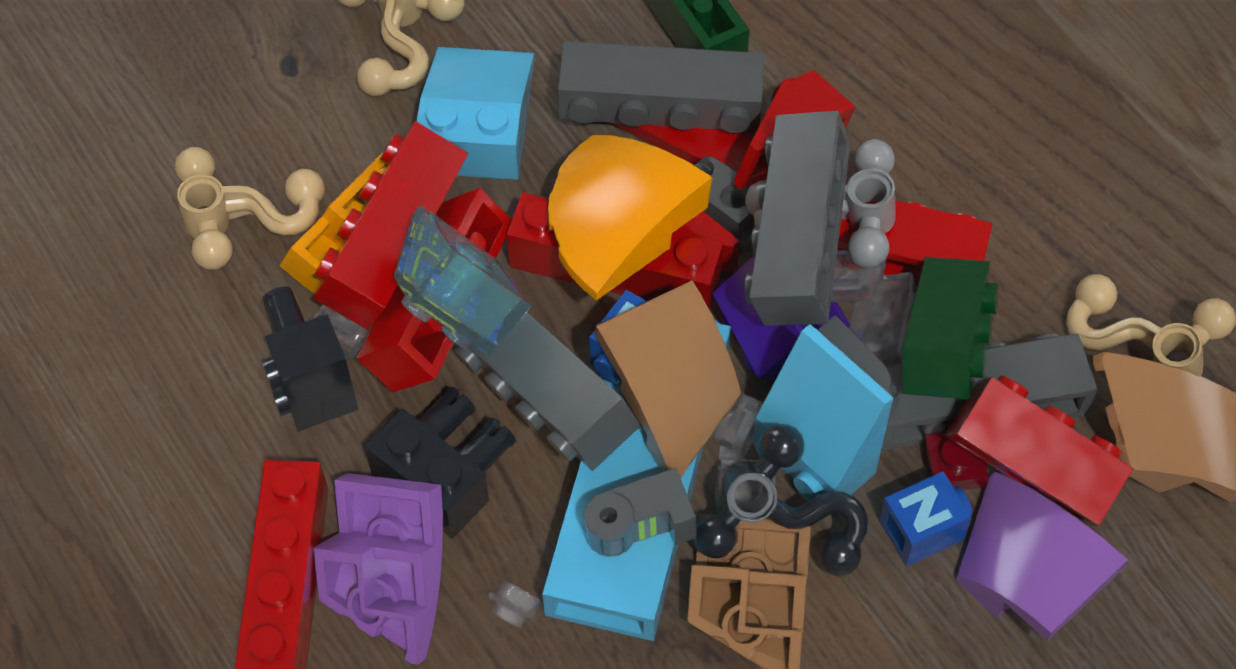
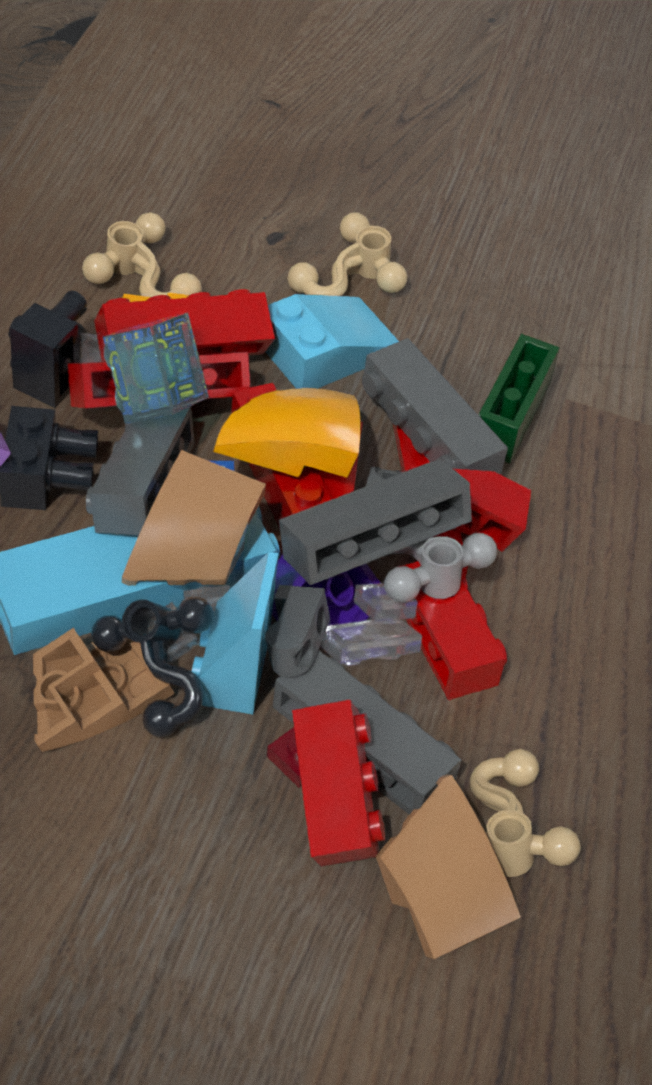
camera: 45 degrees right, 10 degrees down
(639, 512) = (79, 567): dark grey leg -> none
(926, 518) = (232, 753): blue brick -> none
(949, 328) = (383, 667): dark green brick -> none
(1034, 557) = (251, 839): medium lavender slope -> none

